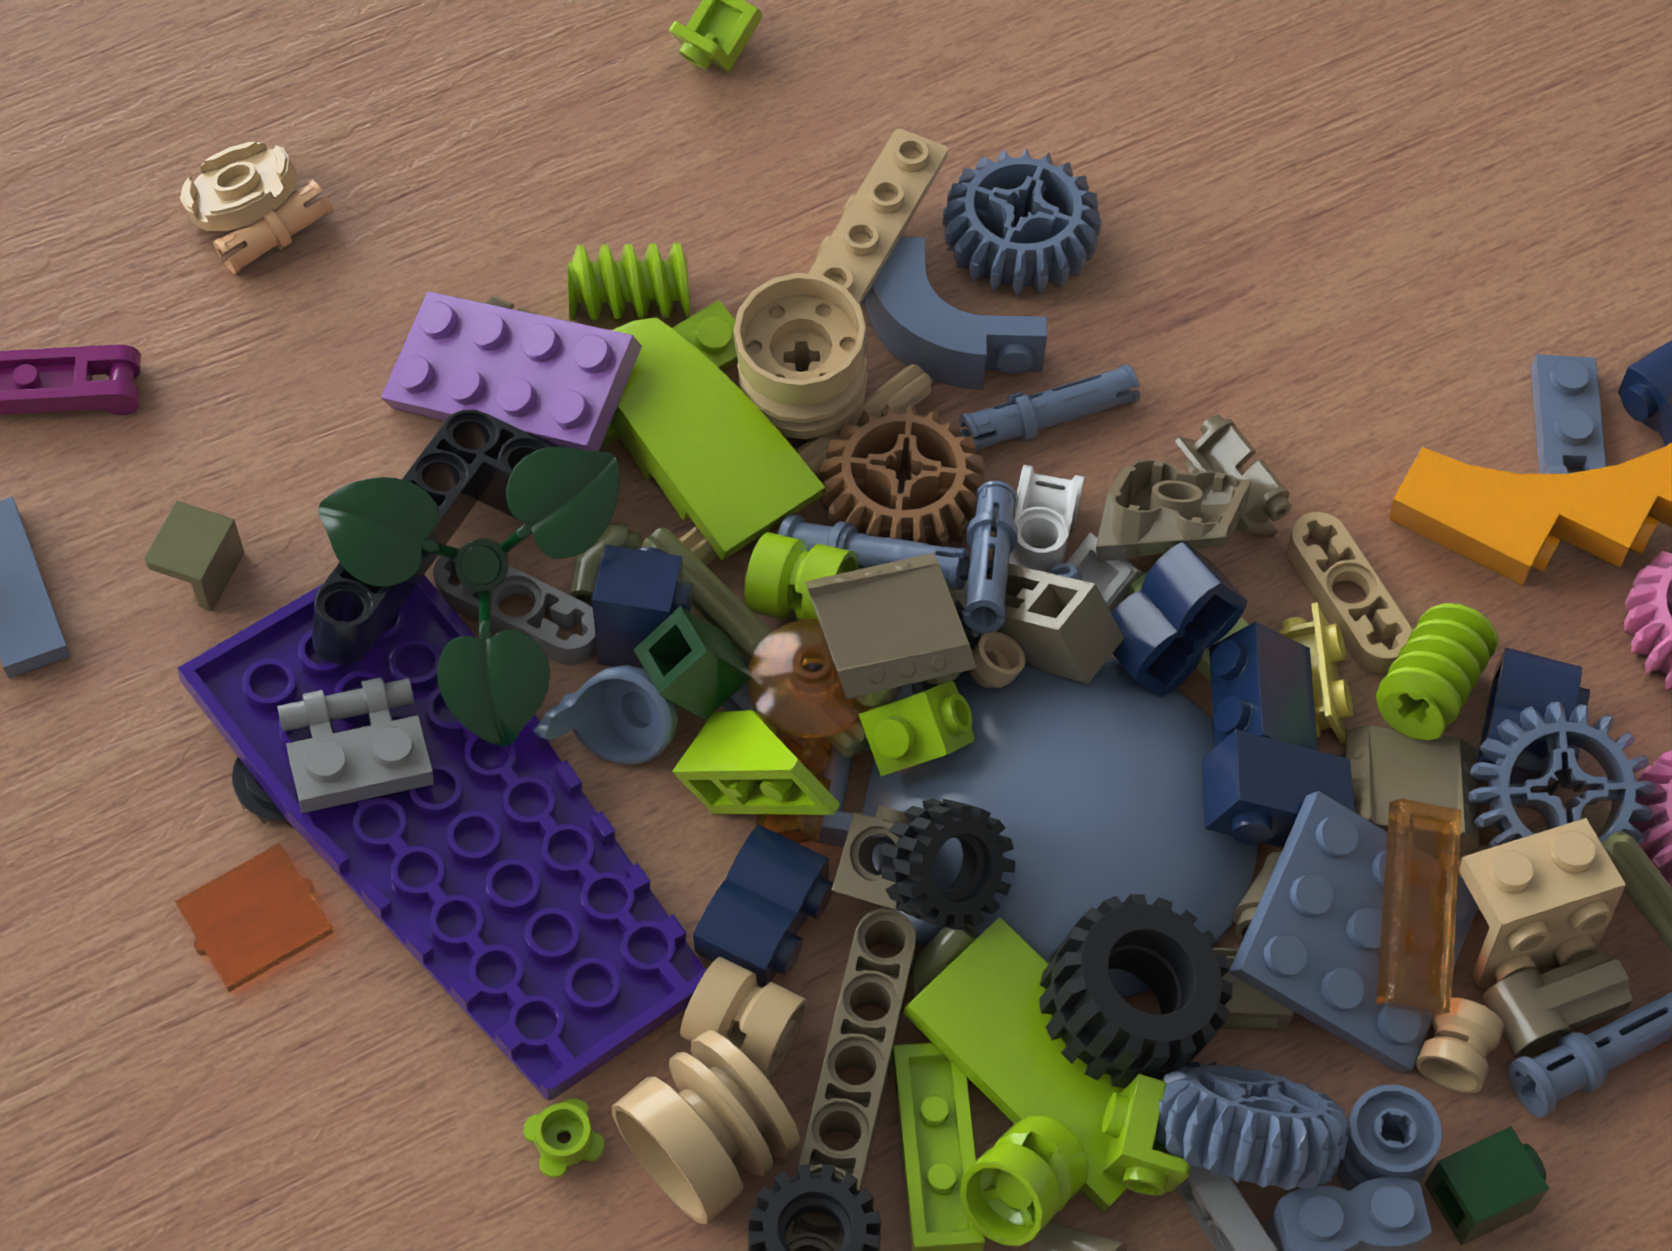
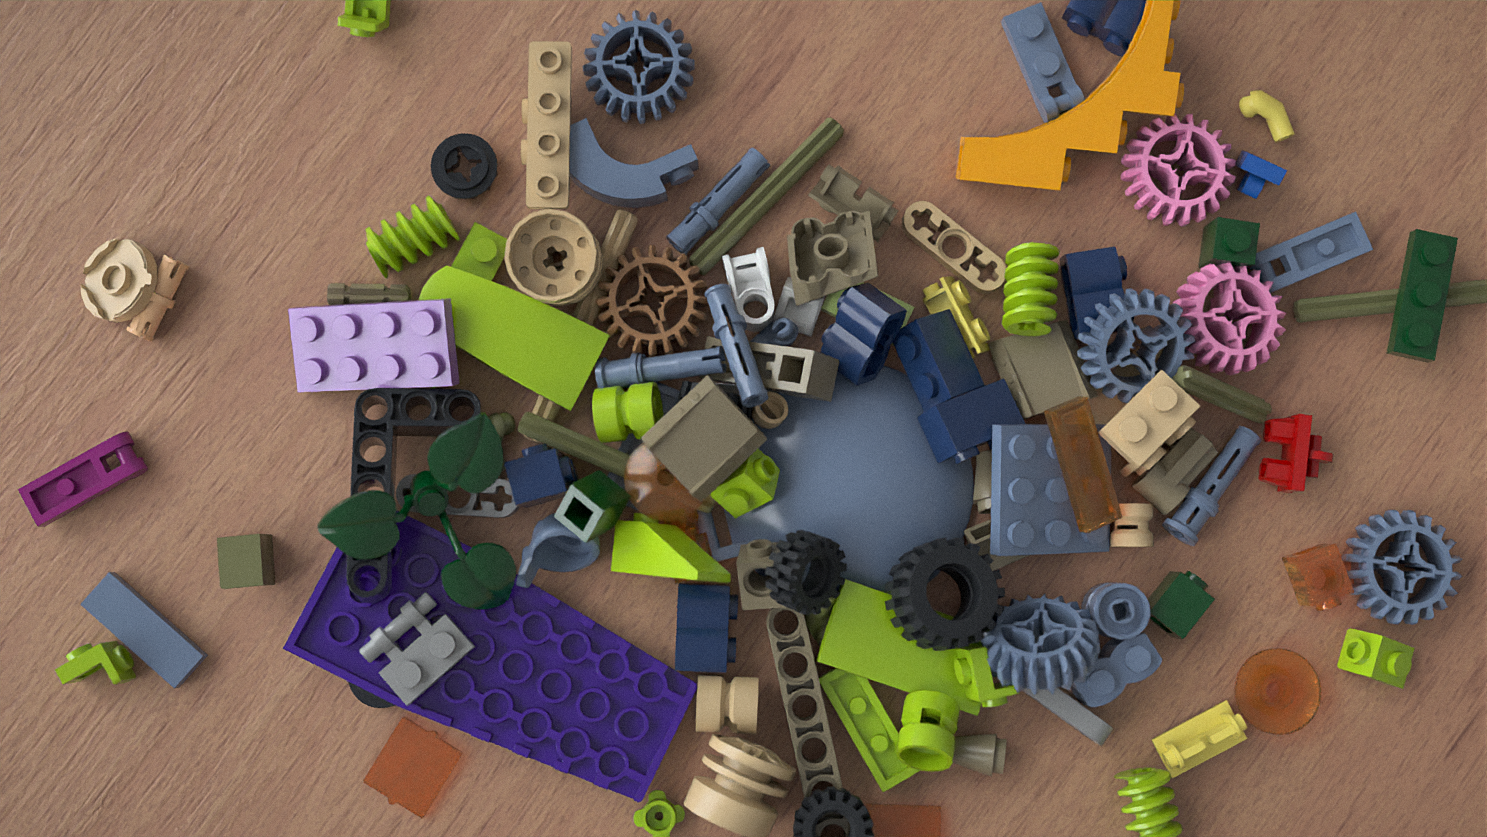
camera: 25 degrees left, 25 degrees up
(718, 233) = (447, 158): none -> black gear
(1121, 428) = (766, 195): none -> olive axle

